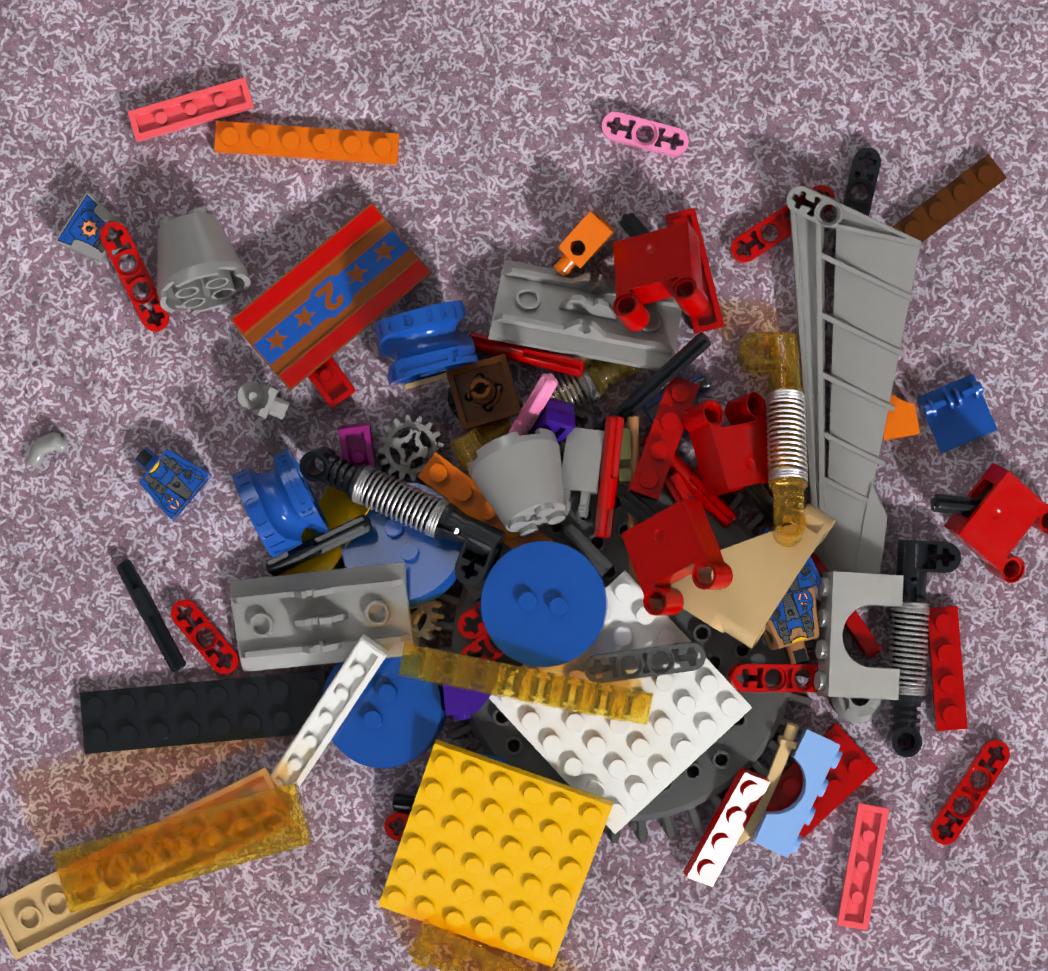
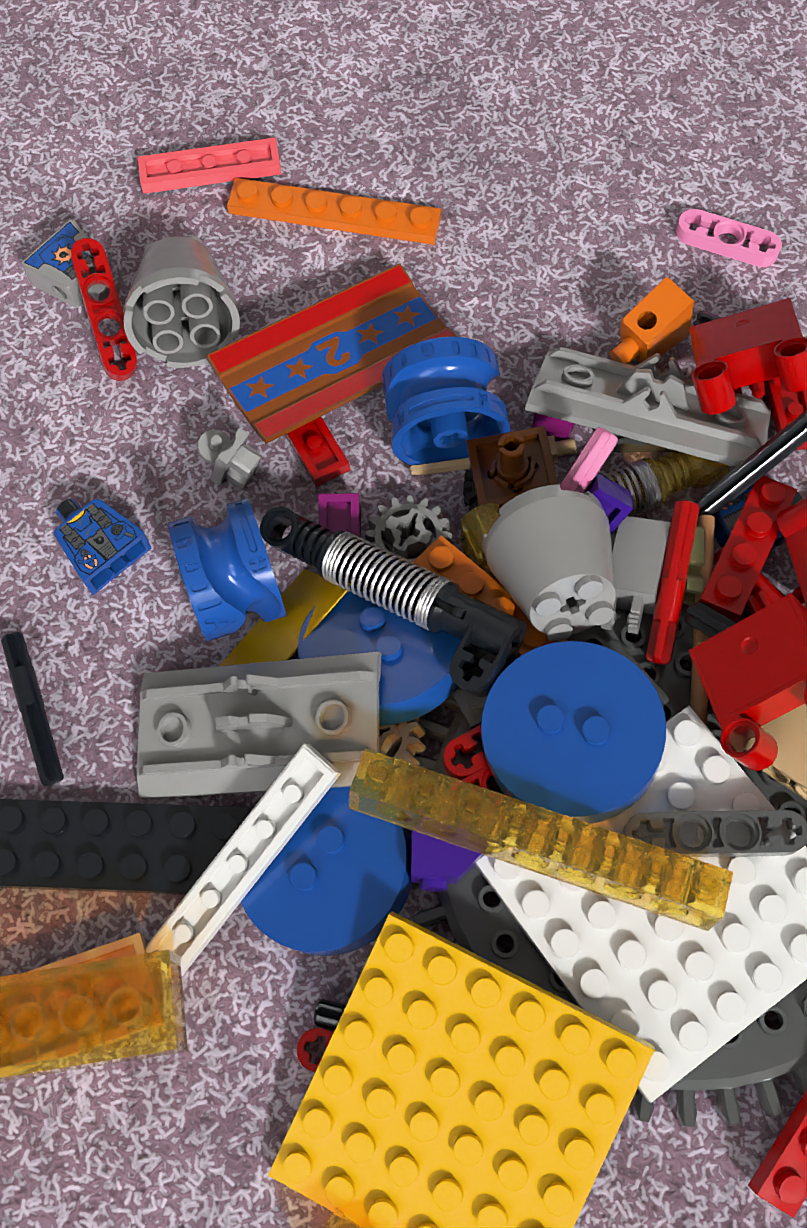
camera: 10 degrees right, 20 degrees down
(196, 614) = (72, 725): red beam -> none
(319, 545) = (273, 632): black axle -> none
(529, 355) = (575, 439): red axle -> none

